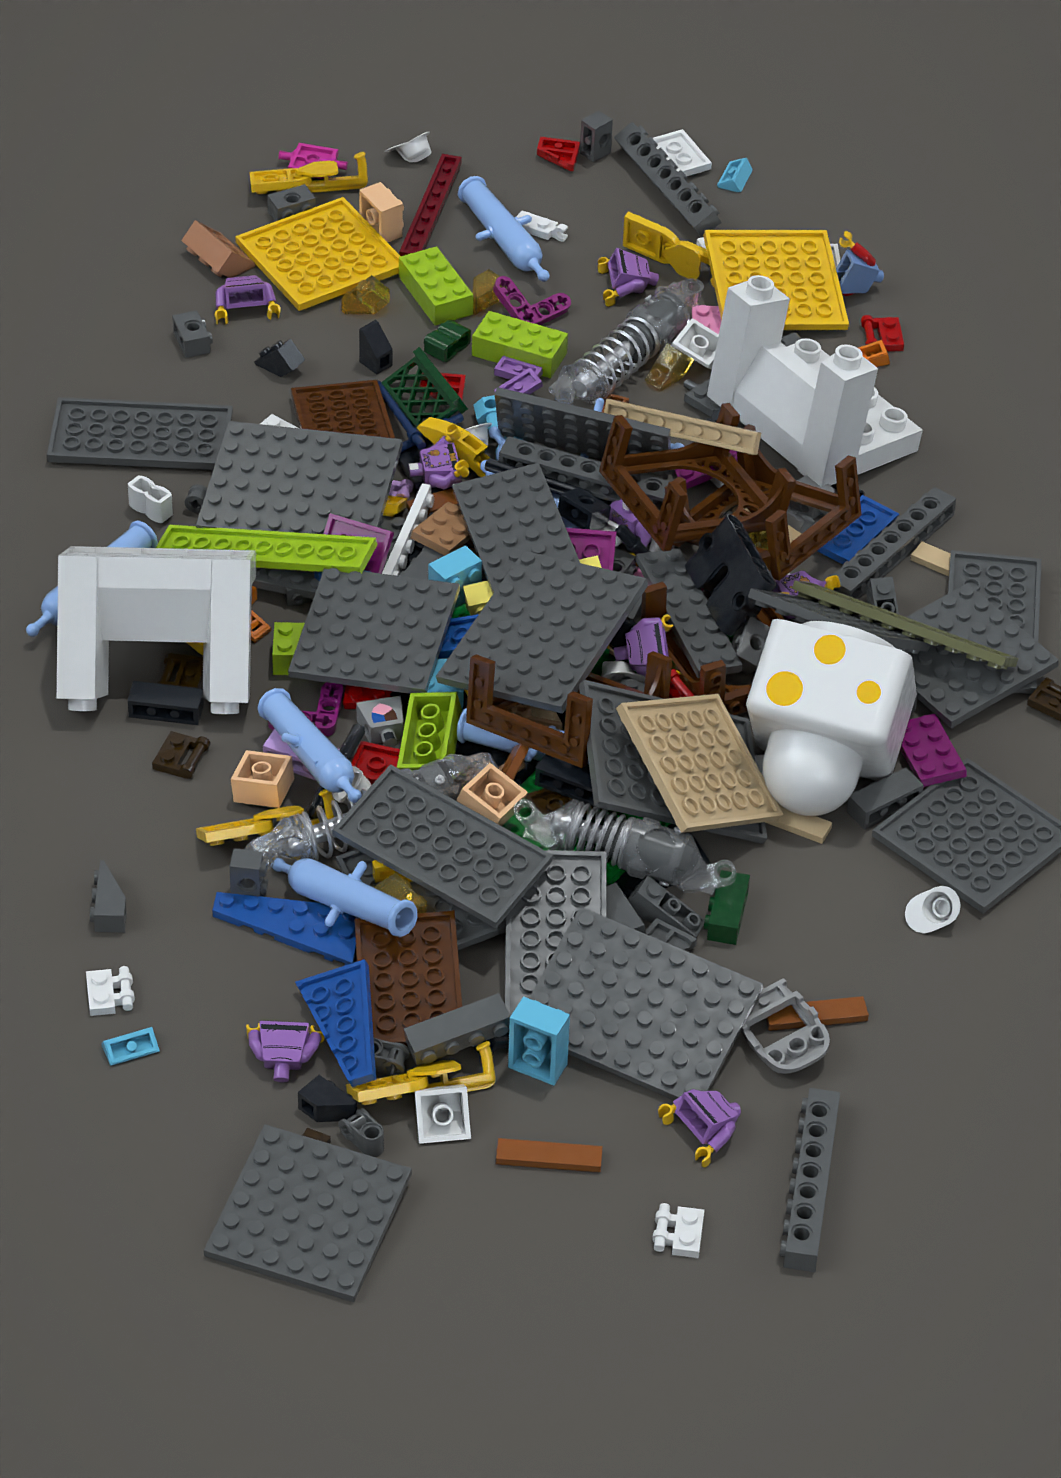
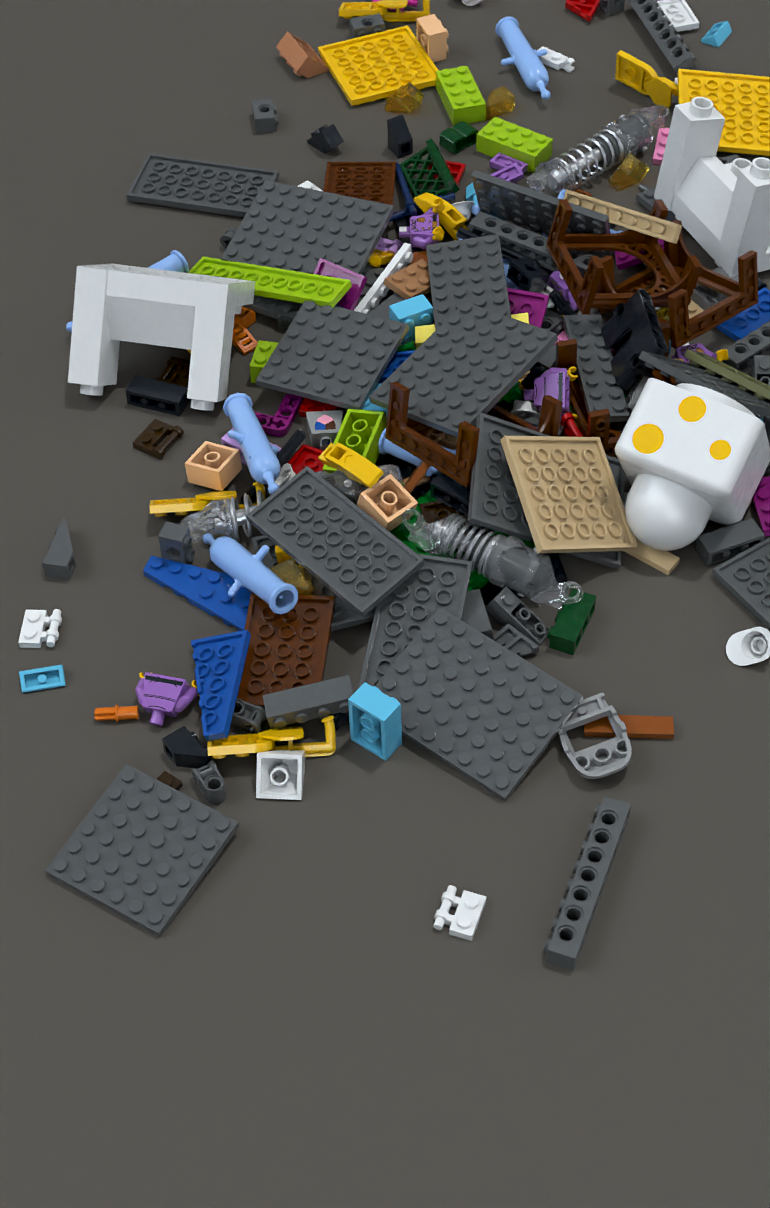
camera: 15 degrees right, 5 degrees up
(150, 499) = (193, 235): white brick -> none
(231, 1073) = (116, 713): none -> orange axle
(245, 292) = (311, 88): medium lavender torso -> none
(431, 204) = (474, 35): dark red plate -> none
(442, 755) = (351, 464): none -> yellow slope
(530, 312) = (530, 121): magenta beam -> none
(549, 1155) = (364, 825): dark orange tile -> none
(627, 274) = (612, 99): medium lavender torso -> none
(697, 343) = (651, 153): white slope -> none
(707, 1116) = (508, 810): medium lavender torso -> none

